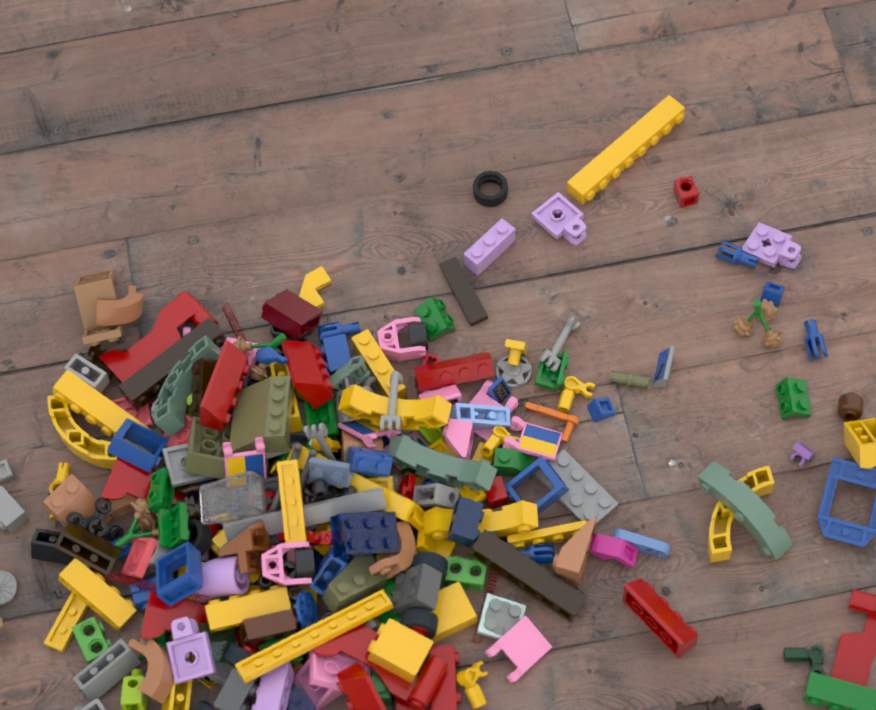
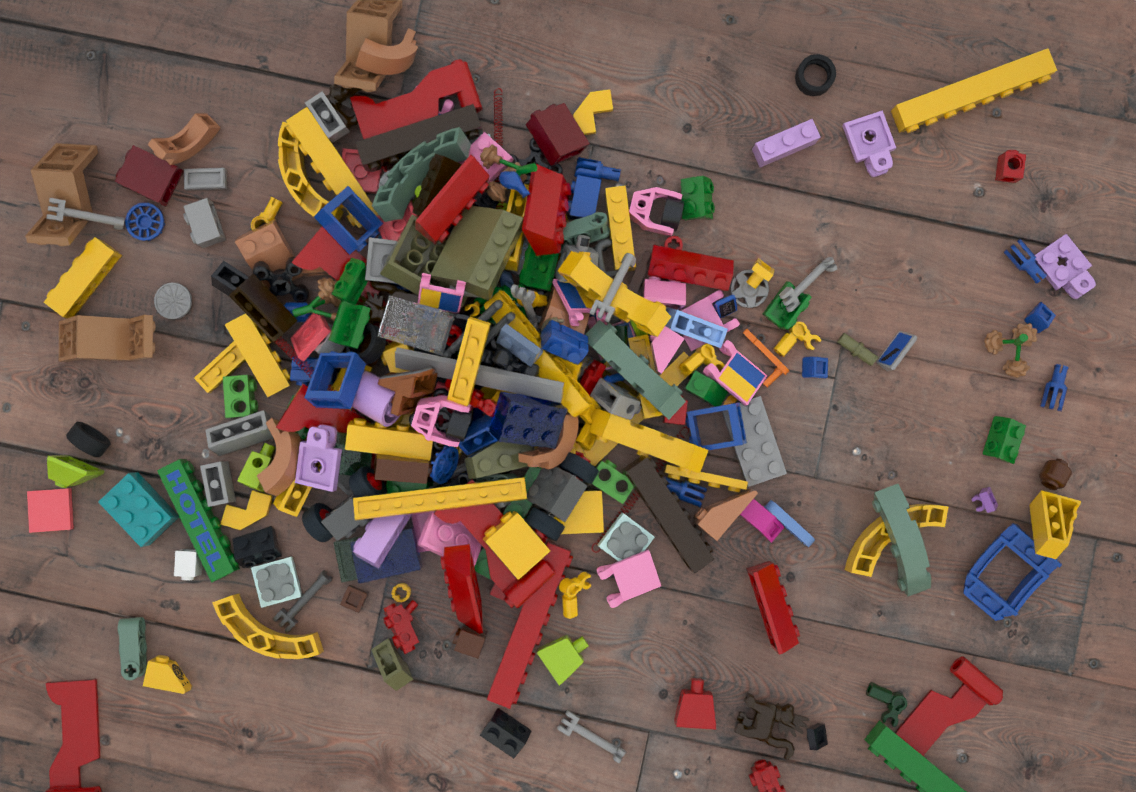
camera: 15 degrees right, 25 degrees up
(463, 291) = (738, 179): dark brown tile -> none
(465, 521) = (632, 440): dark blue brick -> none

